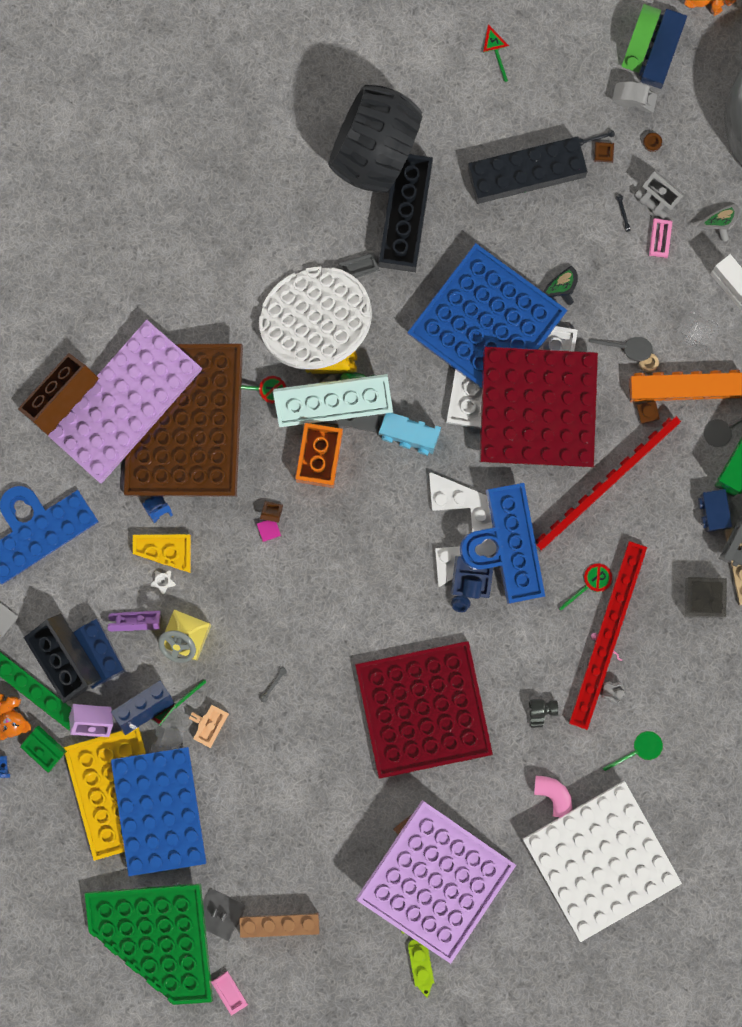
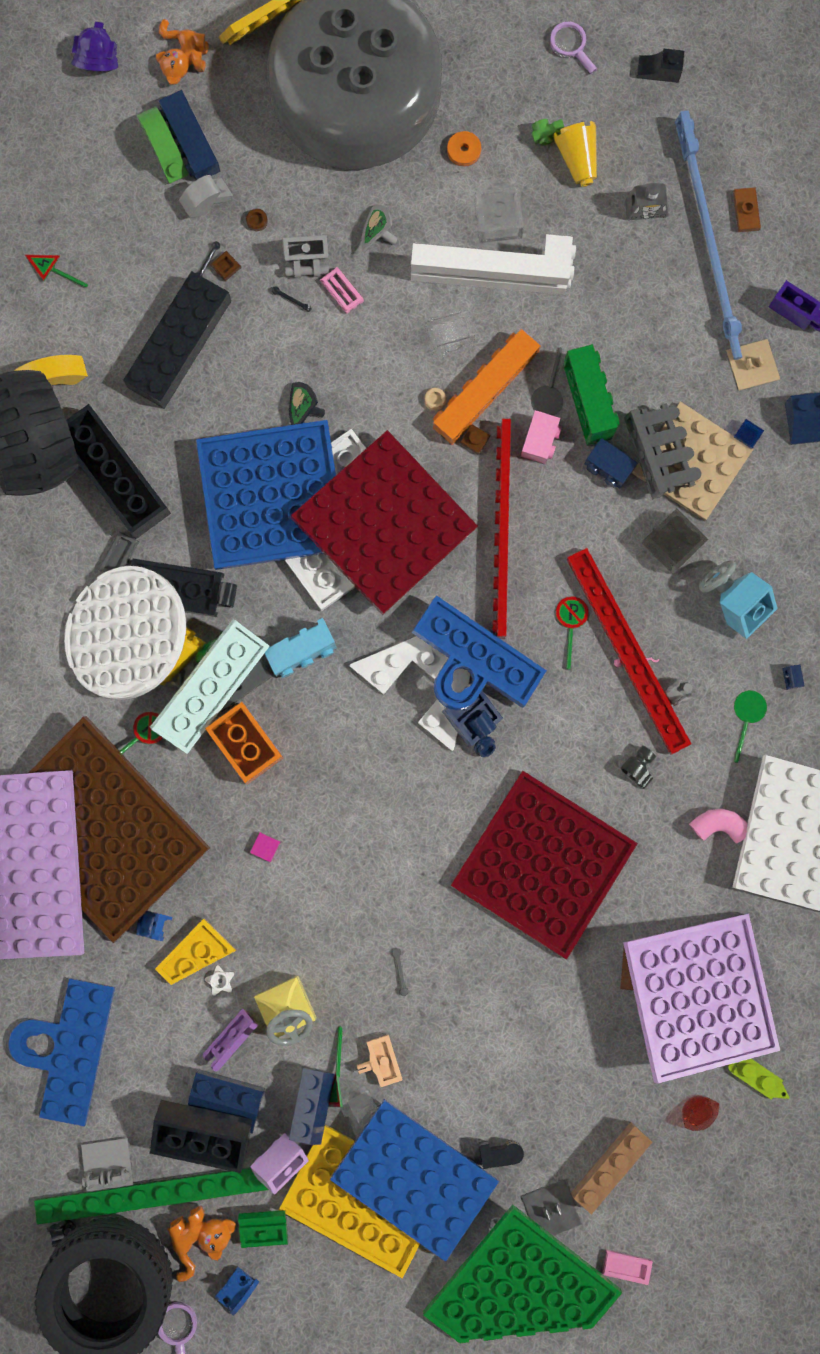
camera: 50 degrees left, 0 degrees up
(228, 855) = (503, 1155): none -> black leg
(271, 511) = (252, 830): reddish brown tile -> none
(364, 950) = (699, 1113): none -> clear red piece
(384, 329) = (192, 585): none -> black hinge
(434, 116) = (59, 368): none -> yellow arch
(635, 348) = (413, 398): dark grey piece -> none
(689, 451) = (540, 437): none -> bright pink brick
(693, 754) = (793, 677): none -> dark blue piece
(708, 676) = (744, 601): none -> medium azure piece

